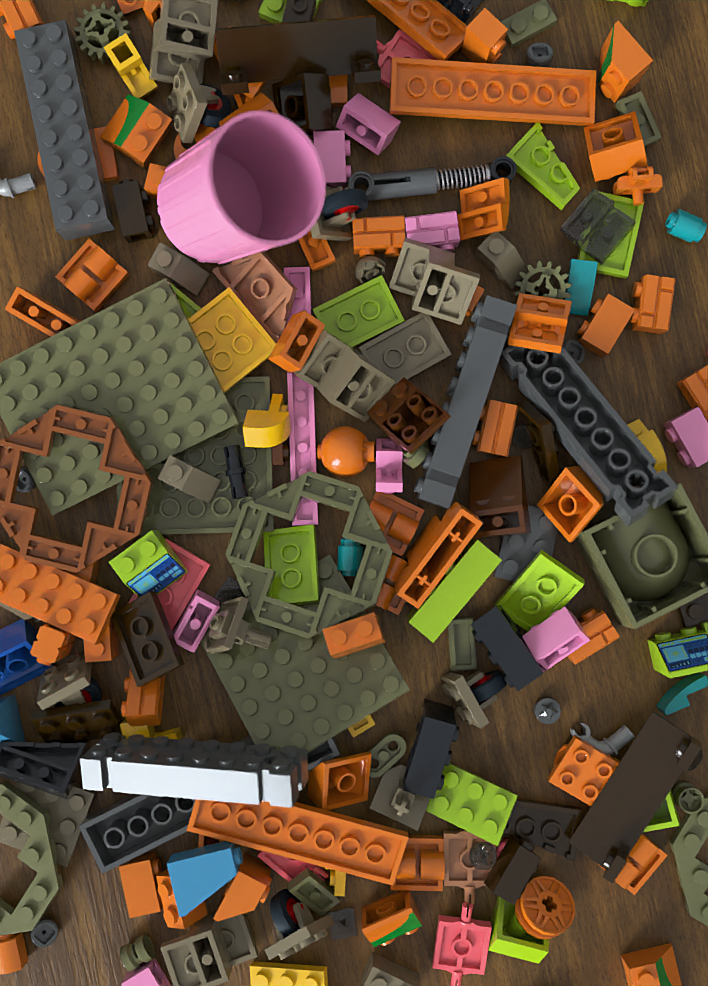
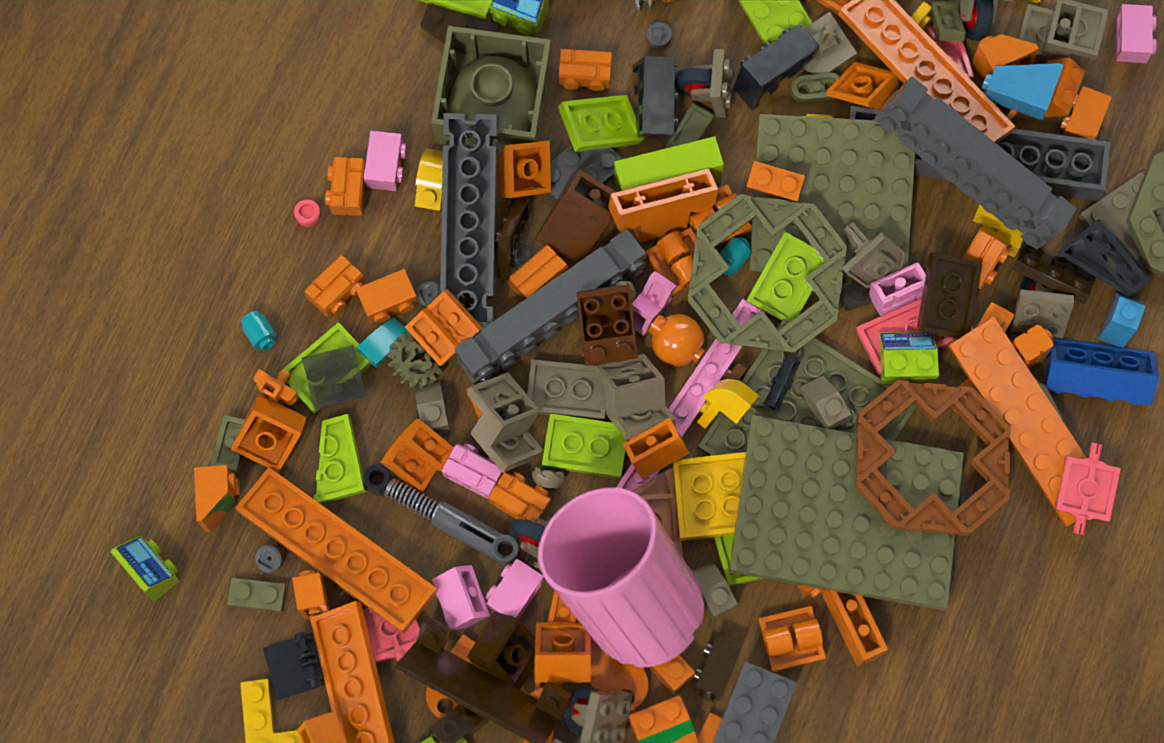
camera: 145 degrees left, 15 degrees down
(138, 952) = (1125, 69): olive wheel -> none
(555, 638) = (613, 79): bright pink brick -> none

